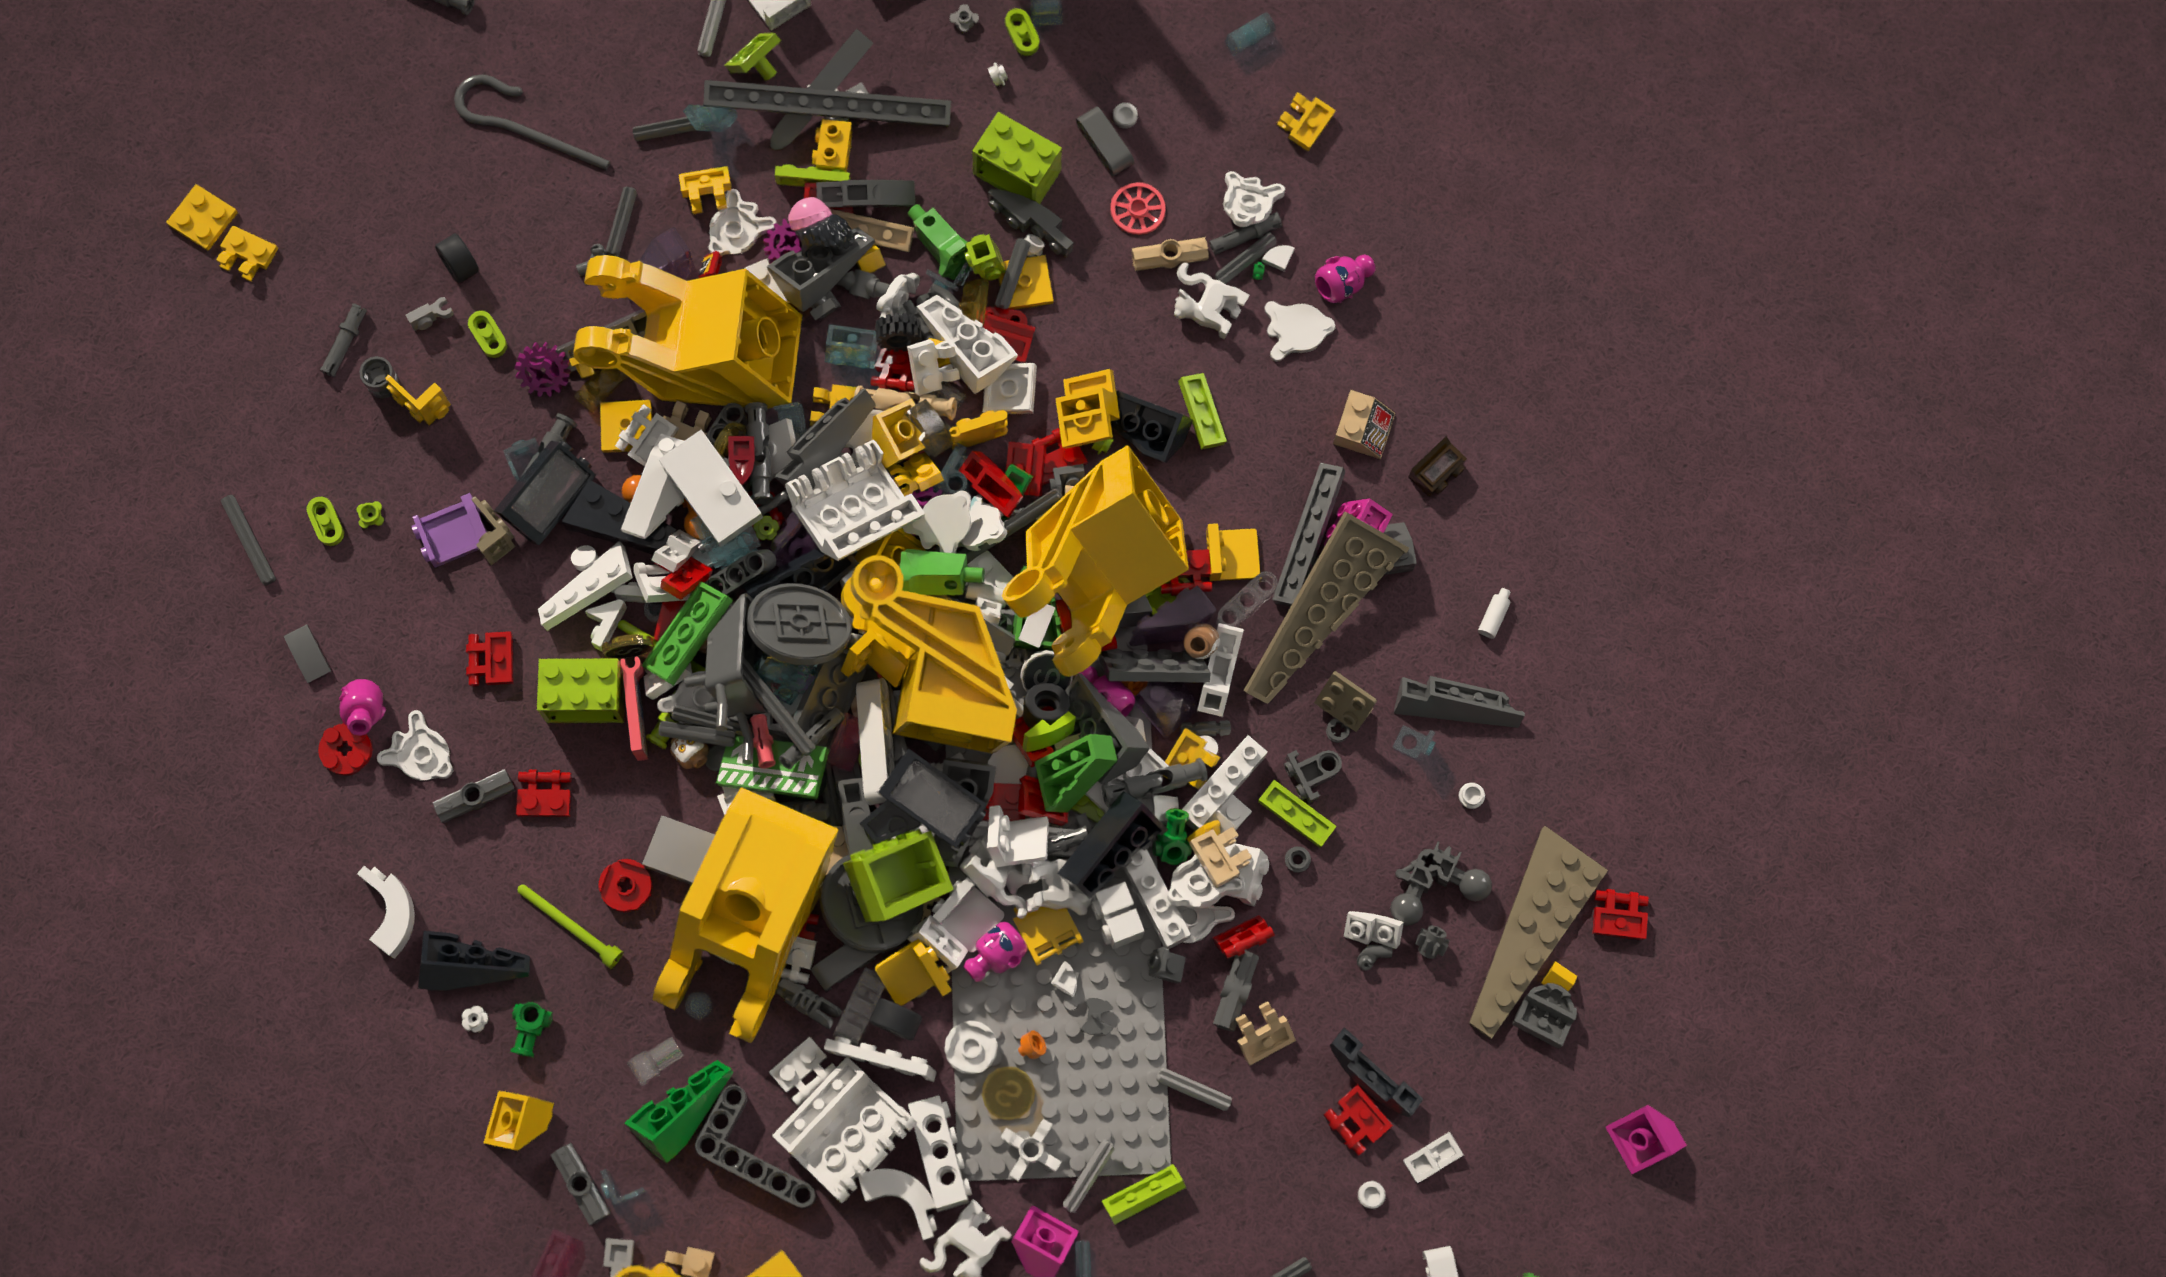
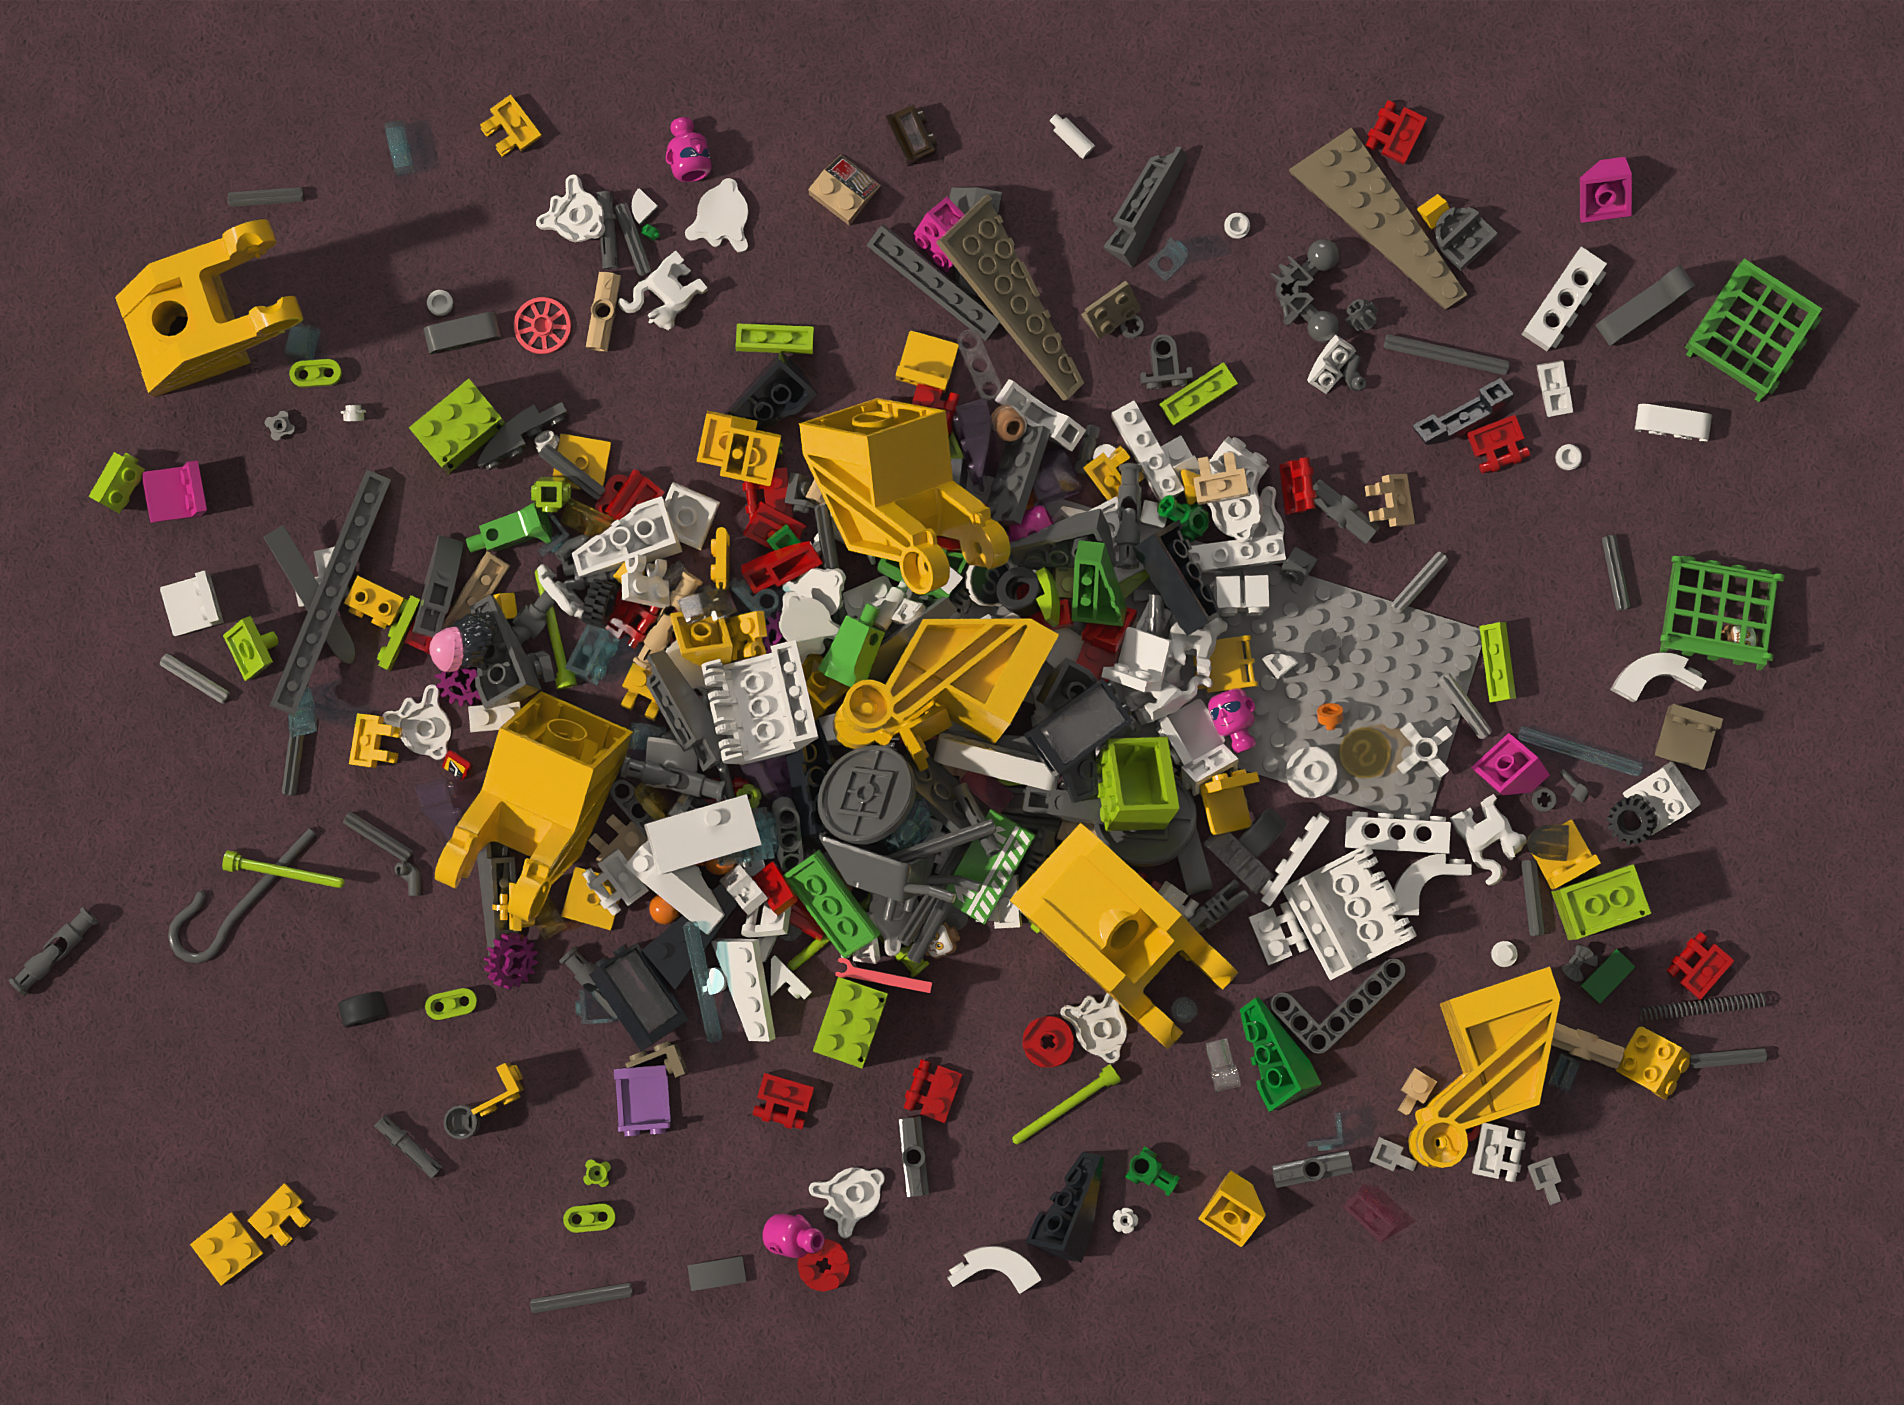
camera: 65 degrees left, 10 degrees up
(425, 315) = (412, 1060): light grey plate -> none
(557, 107) = (233, 861): none -> lime piece
(577, 543) = (702, 981): none -> clear light blue axle
(628, 646) = (820, 965): tile -> none
(653, 929) = (1098, 1026): none -> white tile
(677, 850) = (1036, 977): light grey brick -> none
(741, 456) = (677, 796): dark red plate -> none
(762, 741) = (962, 867): coral pin -> none
(820, 333) = (564, 678): none -> lime piece
(1303, 853) = (1246, 403): dark grey plate -> none
(1426, 1039) = (1446, 354): none -> dark grey axle
(1549, 1217) = (1645, 305): none -> dark grey beam
(1565, 1139) = (1582, 263): none -> white brick

